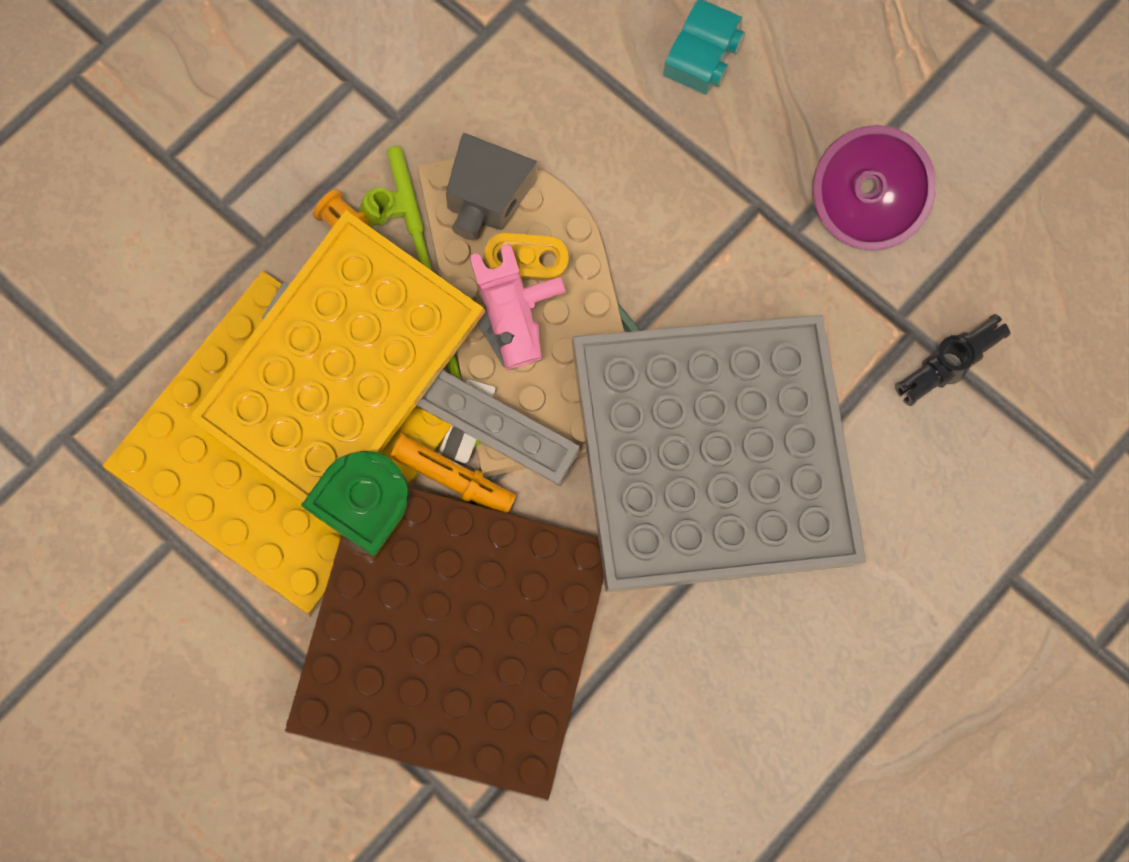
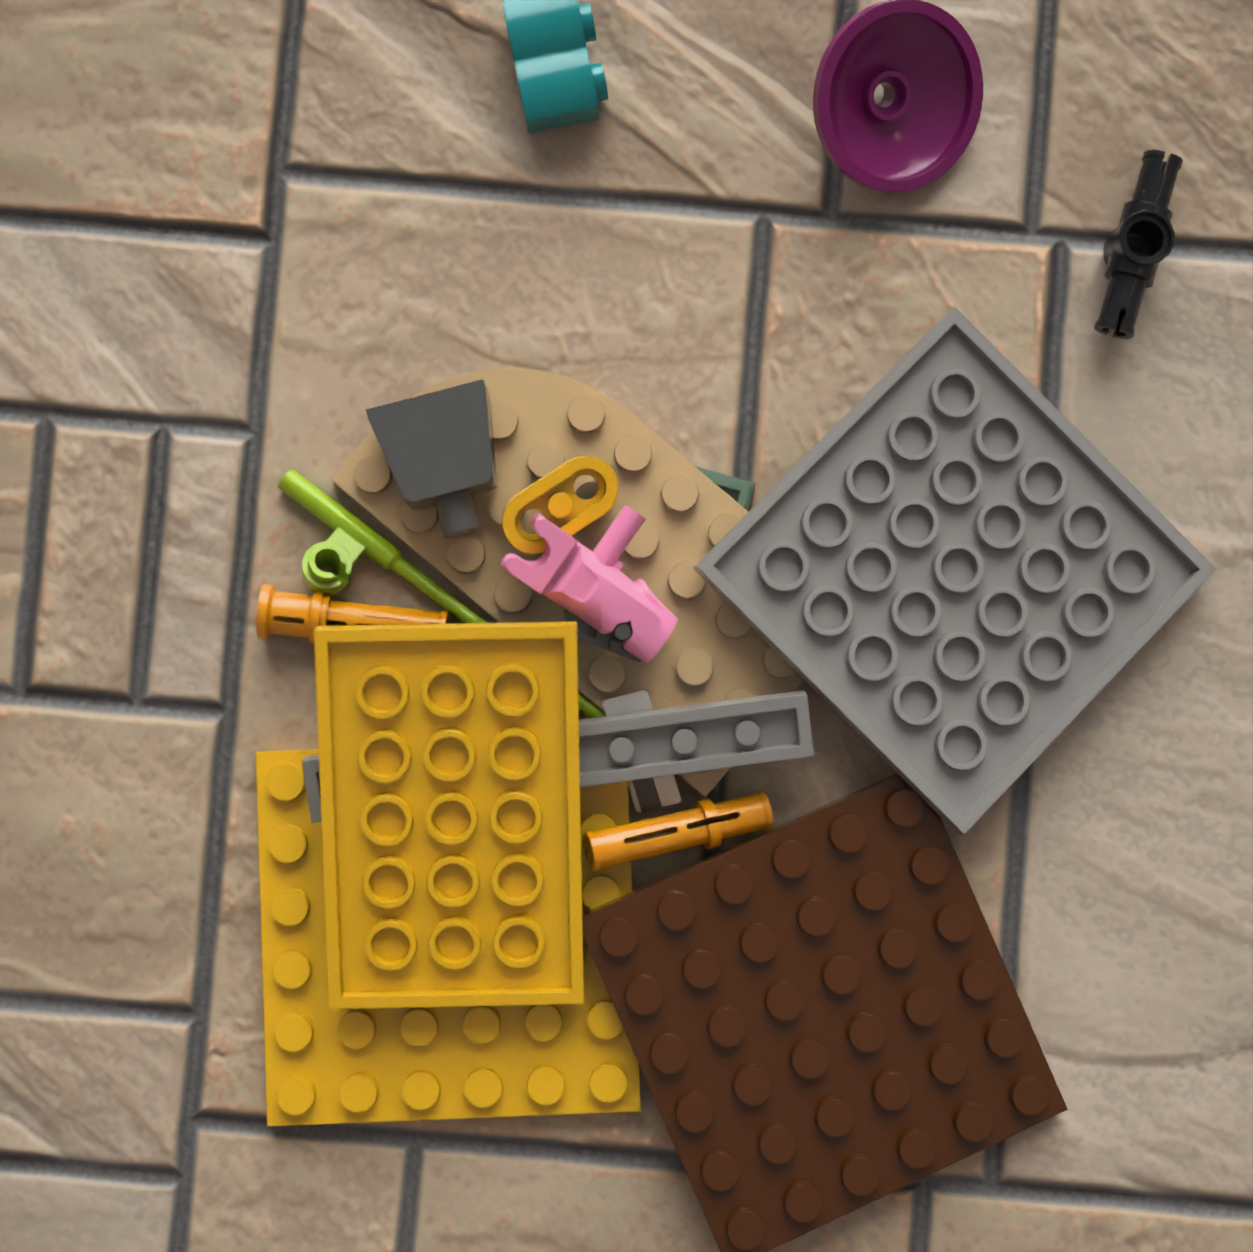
camera: 35 degrees left, 15 degrees up
(360, 499) = (609, 955): green tile -> none

